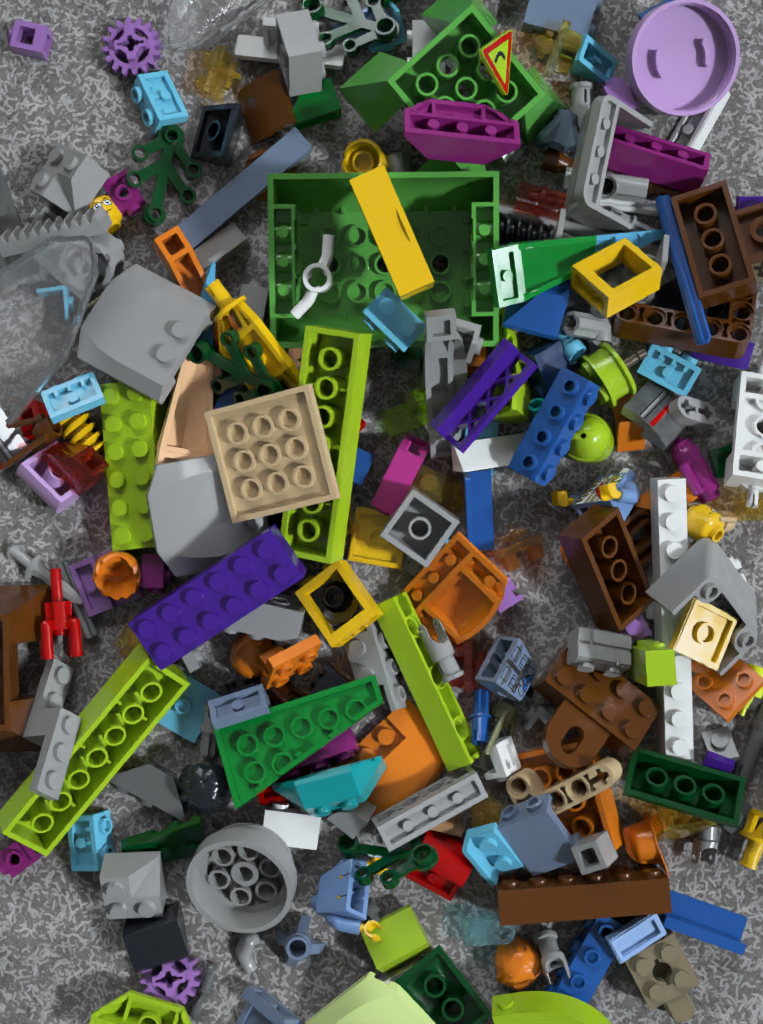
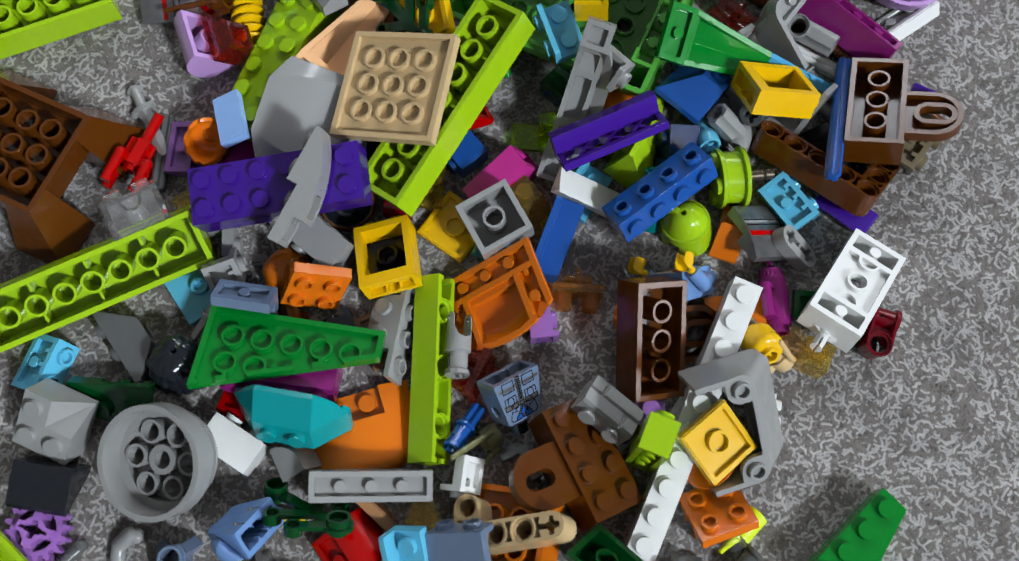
camera: 25 degrees right, 15 degrees down
(52, 729) = (61, 242): light grey bracket -> none
(95, 675) = (134, 208): none -> clear slope
(130, 547) = (231, 119): none -> light blue tile
(204, 687) = (230, 267): none -> light grey bracket
(249, 587) = (311, 176): none -> light grey slope

